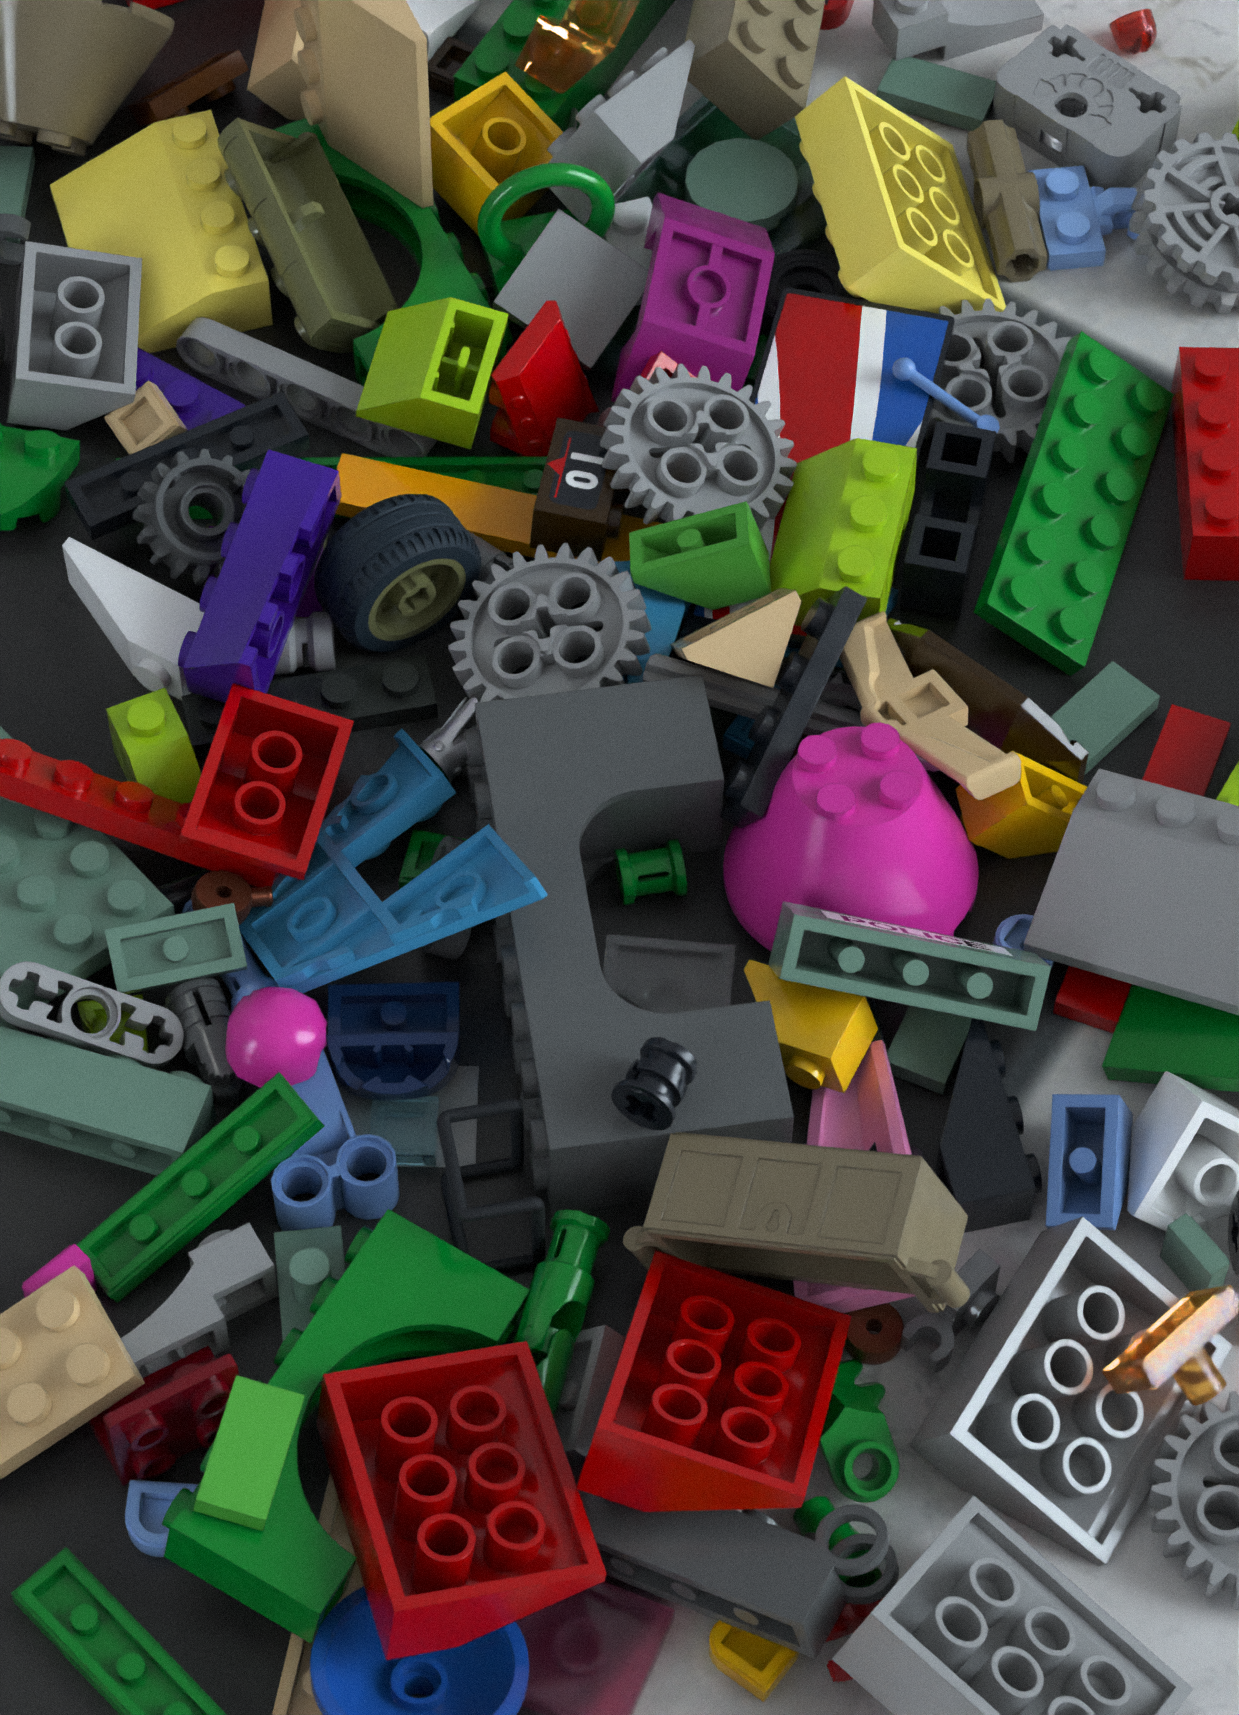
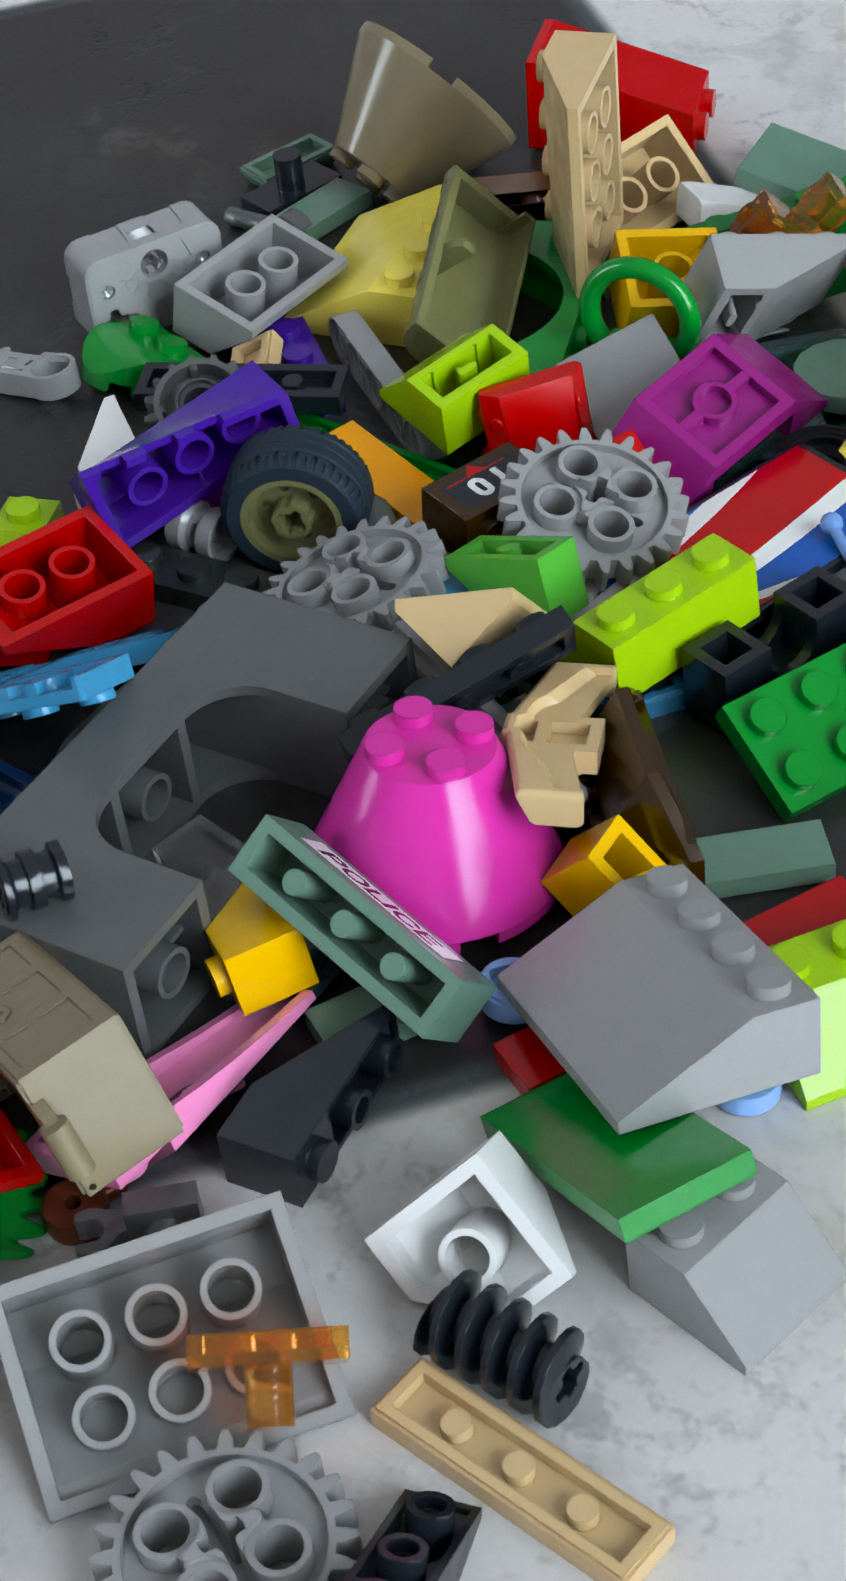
camera: 45 degrees right, 15 degrees down
(650, 871) = (292, 806): green bush -> none
(1088, 1159) = (367, 1168): medium blue slope -> none
(1193, 1255) = (387, 1312): sand green tile -> none

